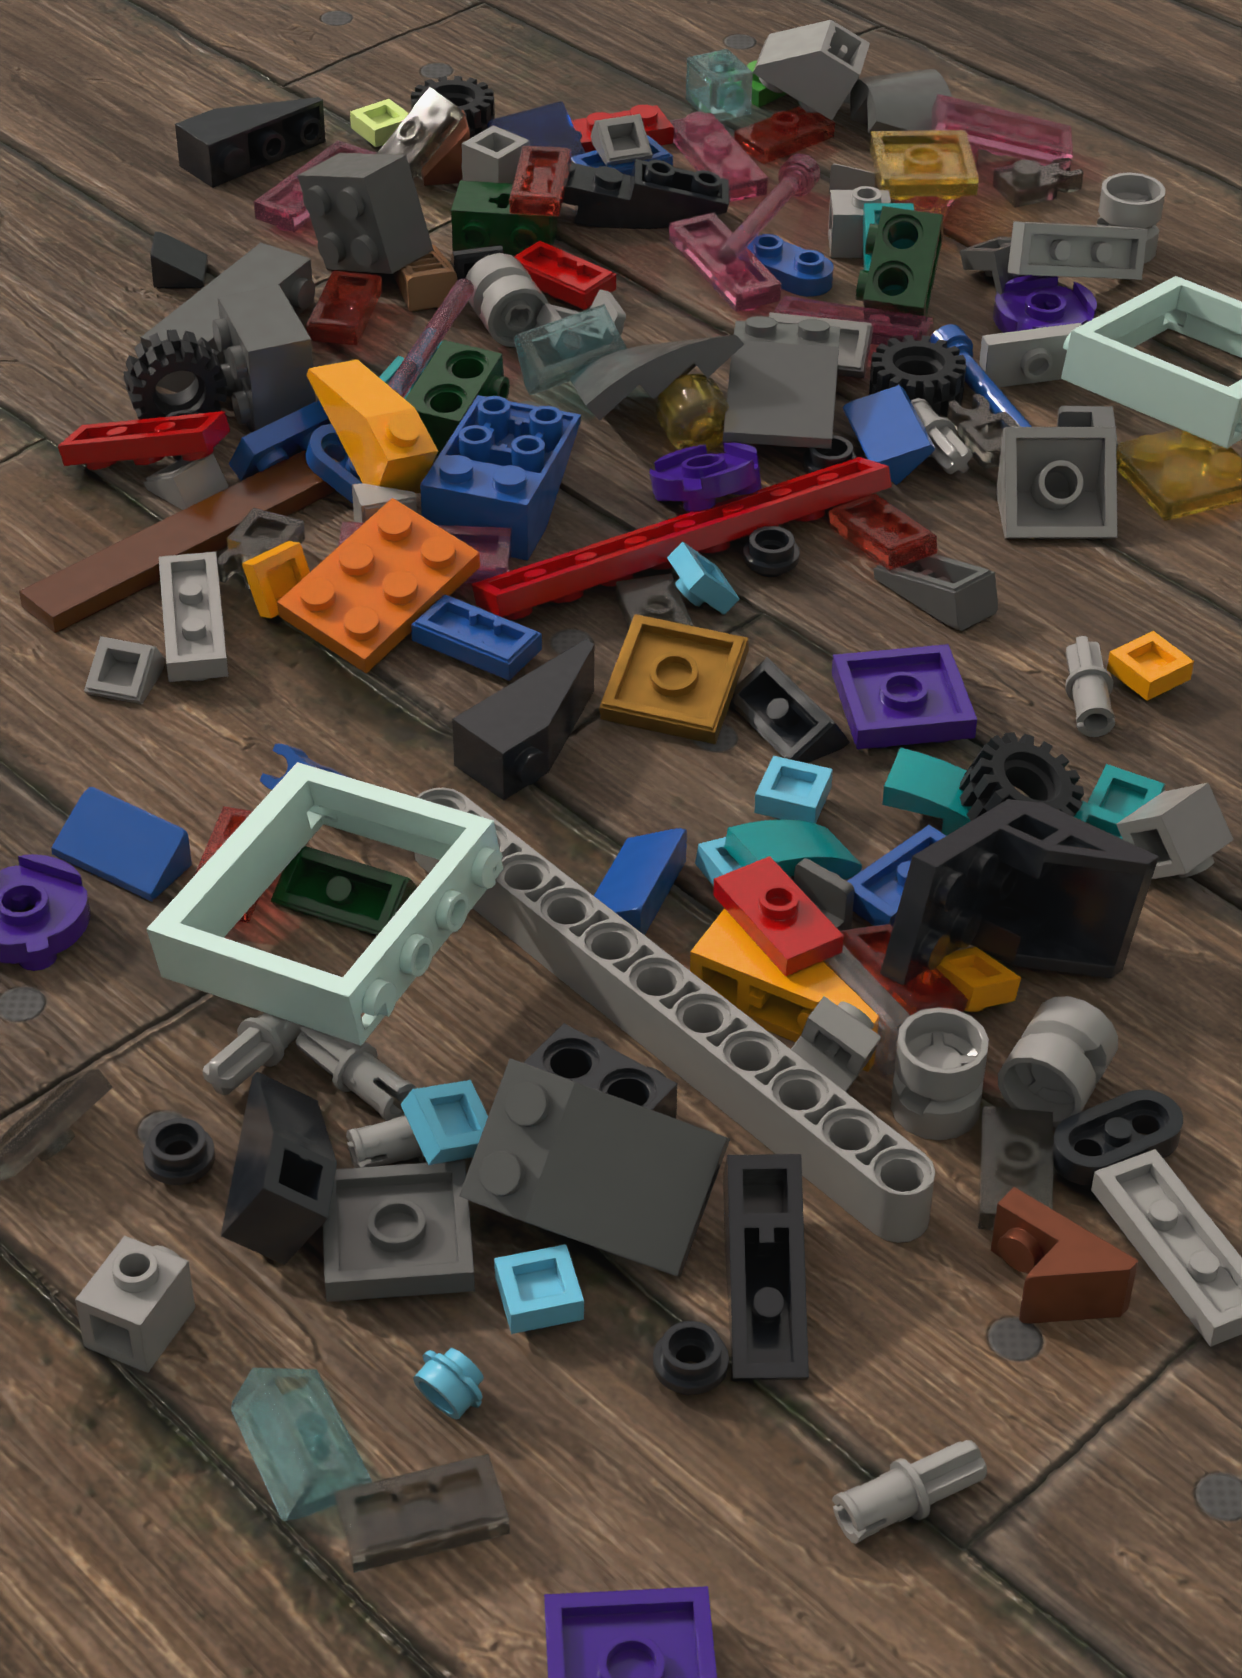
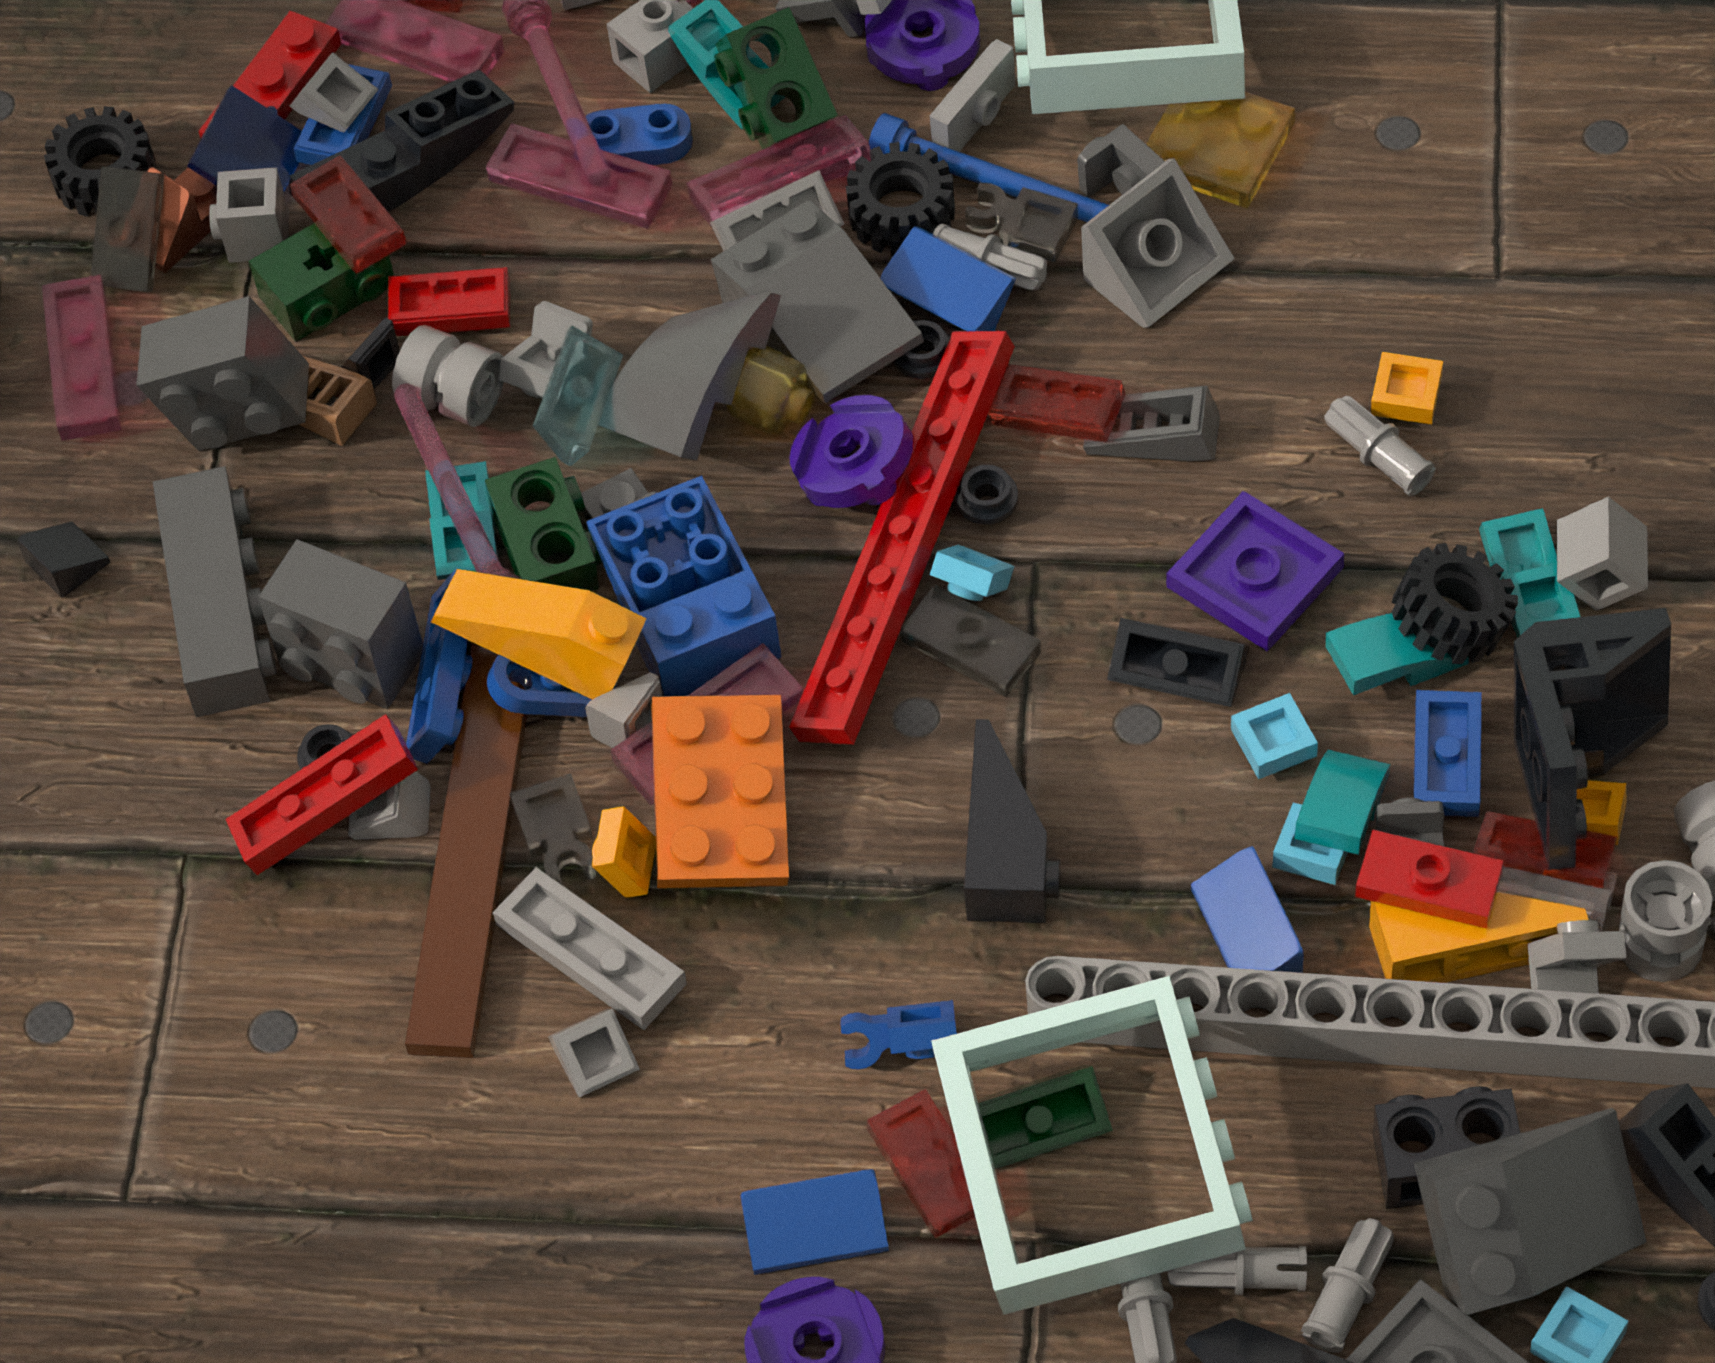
camera: 35 degrees left, 15 degrees up
(173, 356) = (276, 709): black tyre -> none
(344, 308) = (295, 491): clear red plate -> none
(377, 121) = (46, 225): yellowish green plate -> none
(446, 1120) = (1389, 1259): medium azure plate -> none
(476, 637) = (852, 779): blue plate -> none
(674, 679) = (1062, 695): pearl gold plate -> none

